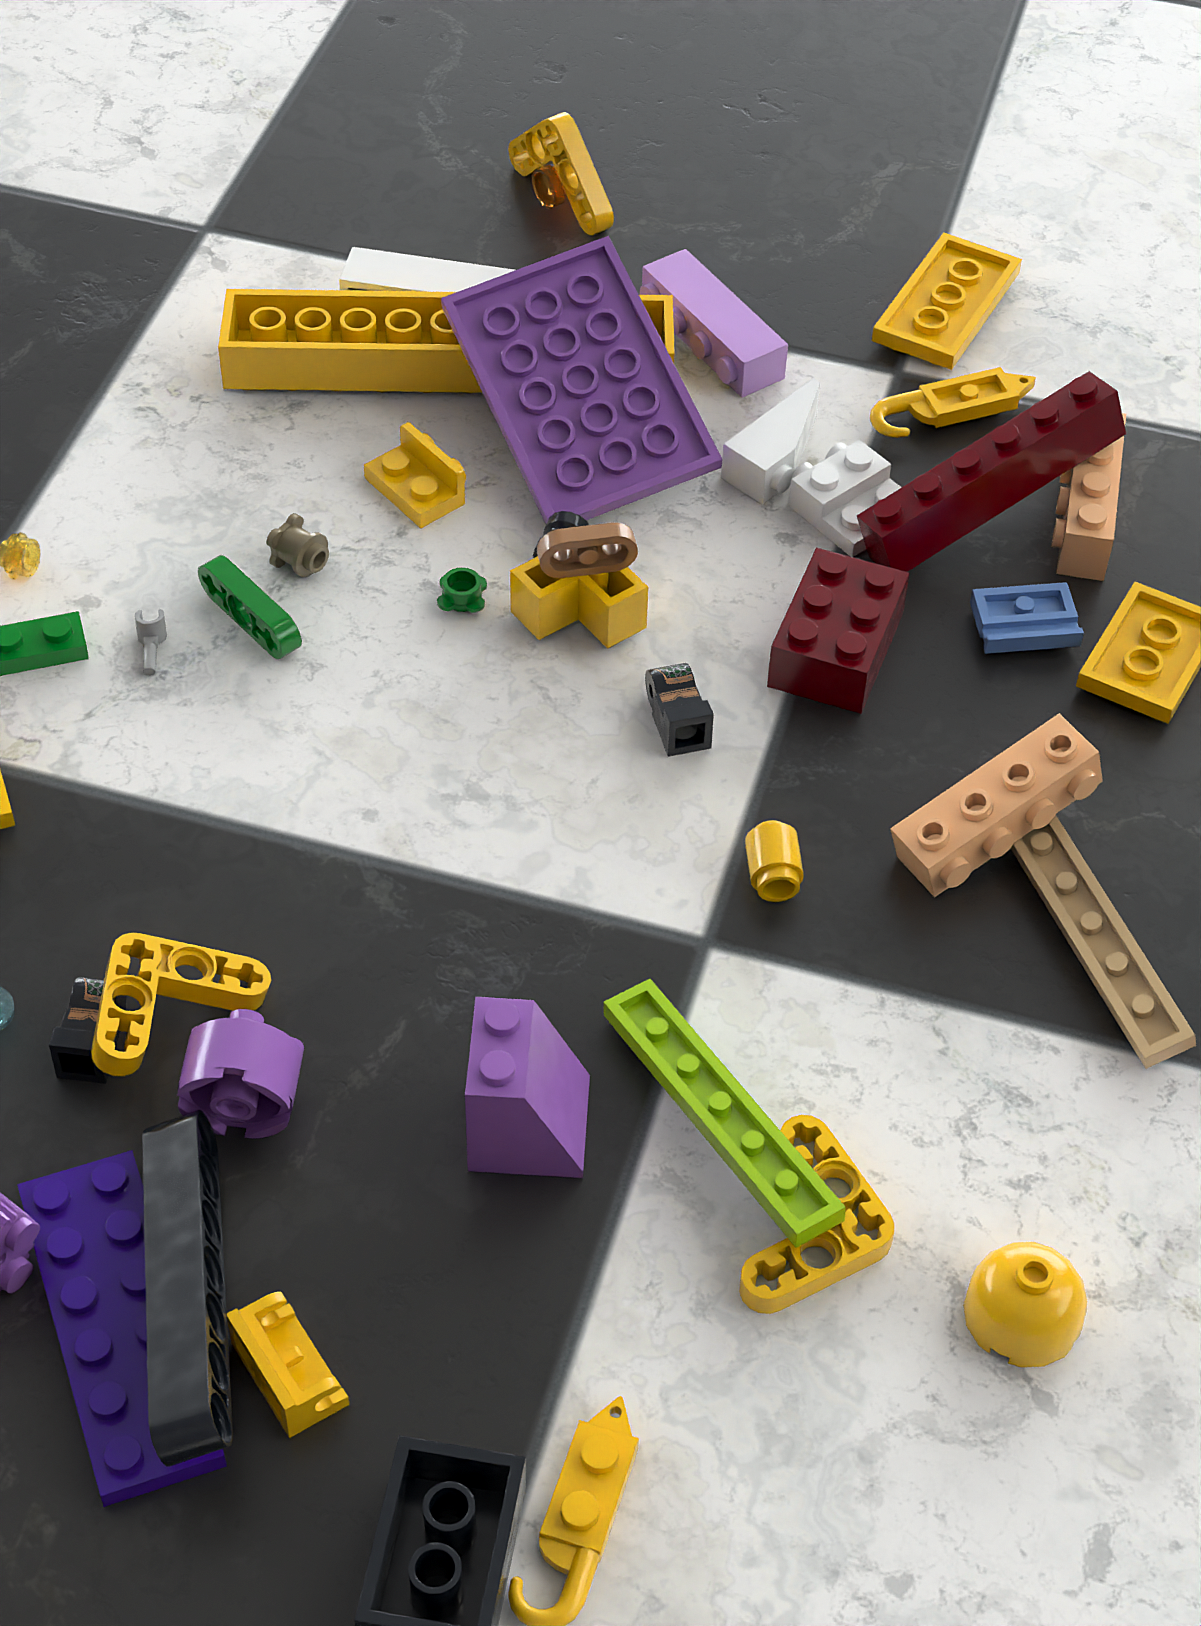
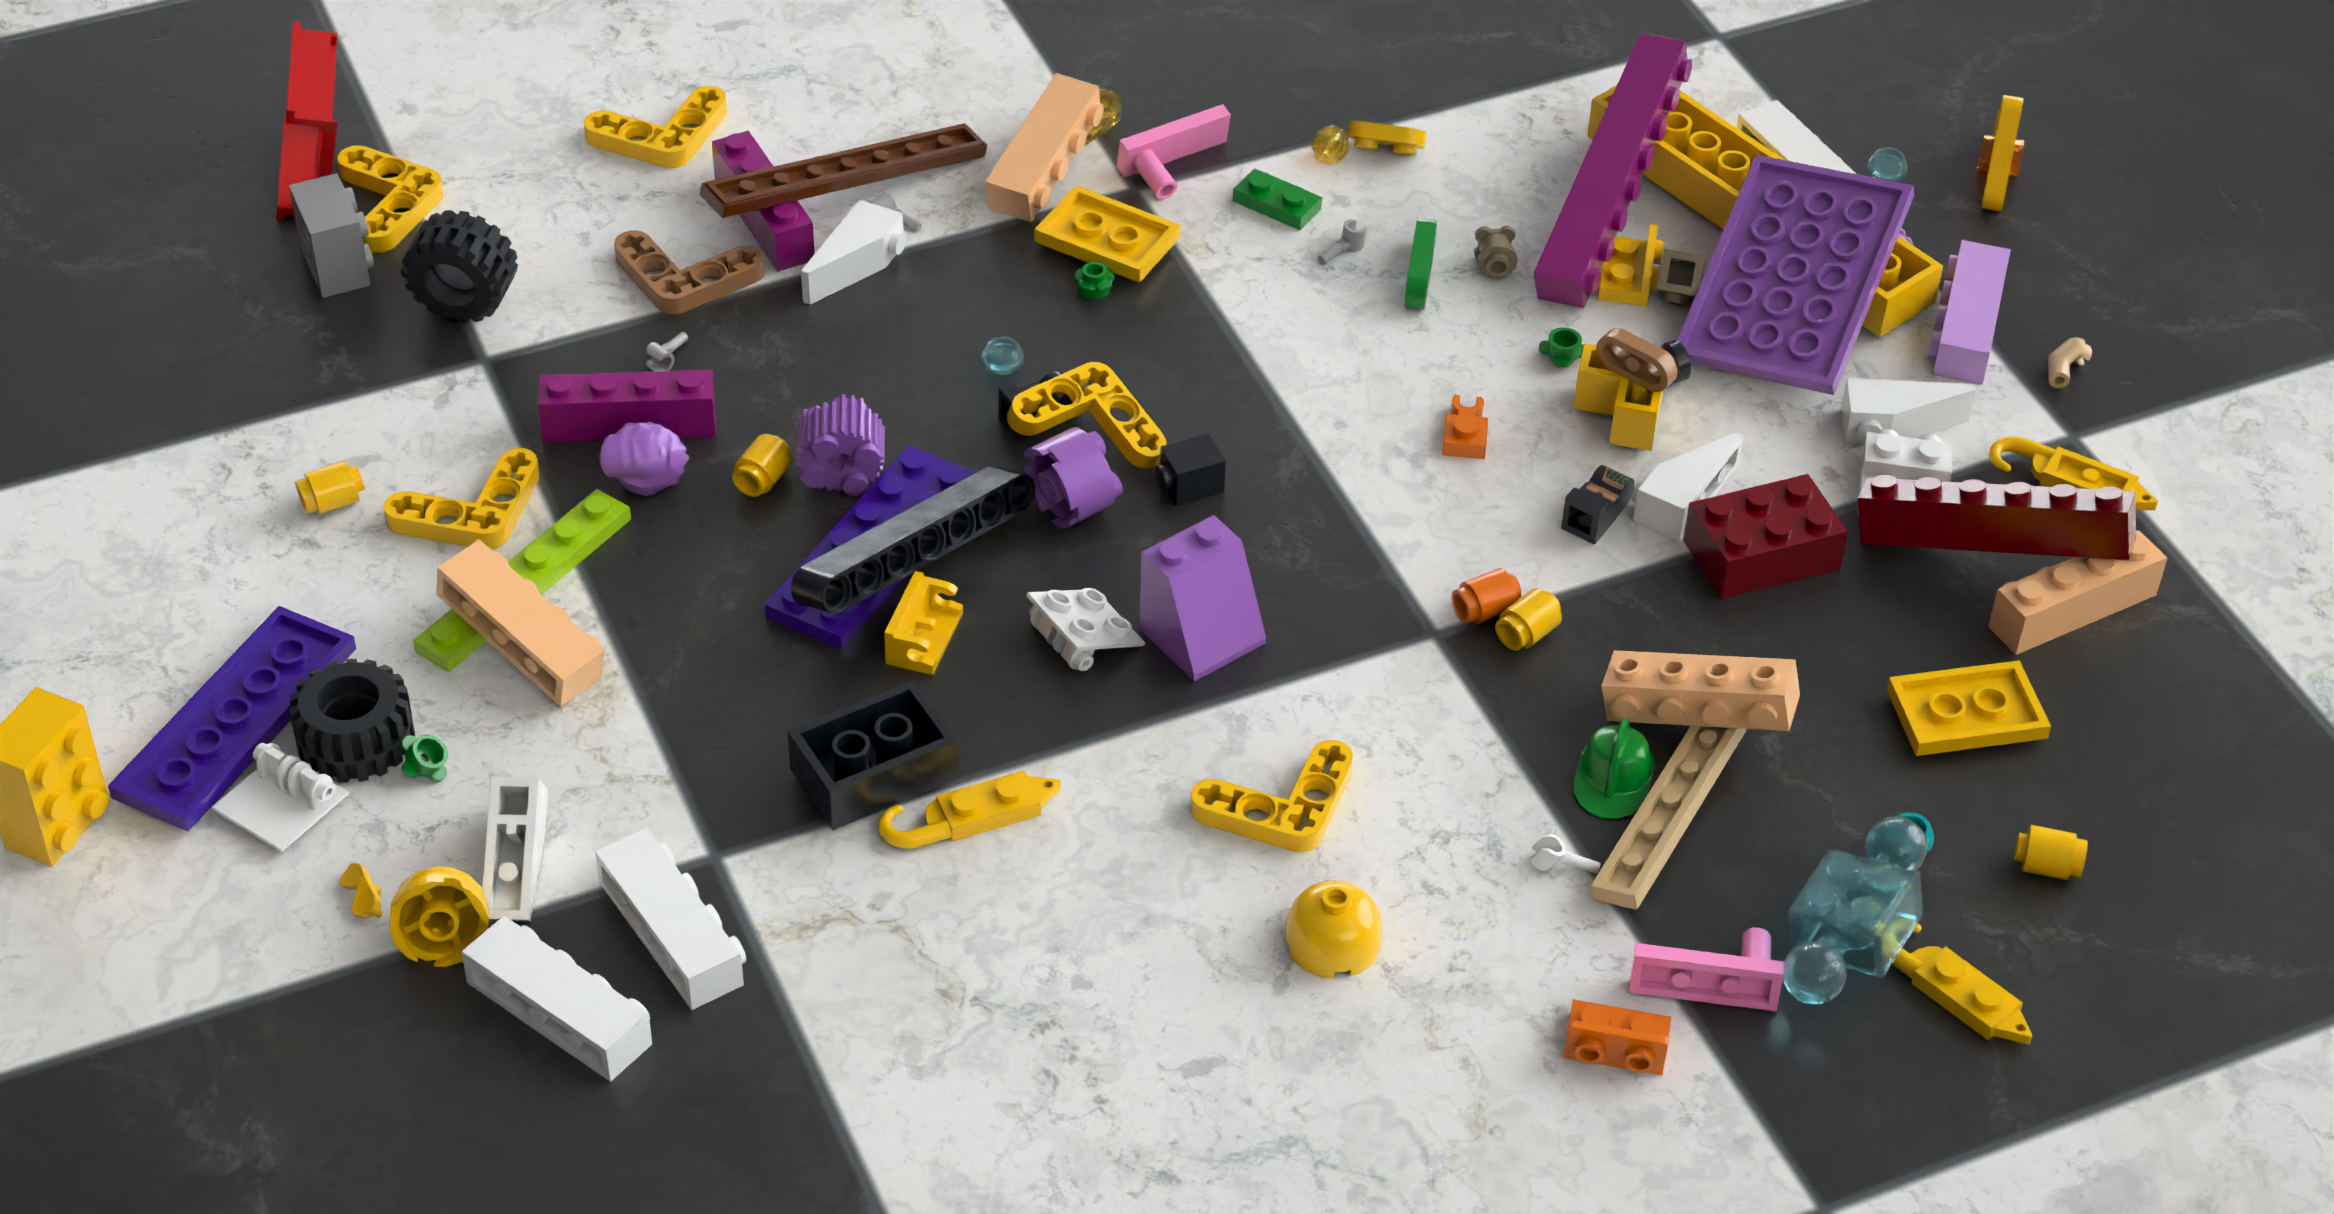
camera: 50 degrees right, 5 degrees down
(45, 521) = (1403, 139): none -> yellow plate
(319, 969) = (1191, 469): none -> black brick
(324, 399) = (1612, 171): none -> magenta brick
(428, 1212) = (1080, 623): none -> white hinge
(482, 452) = (1680, 276): none -> dark tan brick
(483, 734) = (1465, 430): none -> orange plate
(487, 246) = (1887, 164): none -> clear light blue plate
(716, 870) = (1485, 596): none -> orange brick
(725, 1113) = (1301, 704): lime plate -> none
(728, 649) = (1692, 476): none -> white slope
(815, 314) = (2060, 359): none -> tan arm
(946, 300) = (2176, 414): yellow plate -> none
(1006, 939) = (1614, 772): none -> green piece
(1026, 617) = (1911, 626): medium blue plate -> none
(1074, 1055) = (1552, 849): none -> white hand

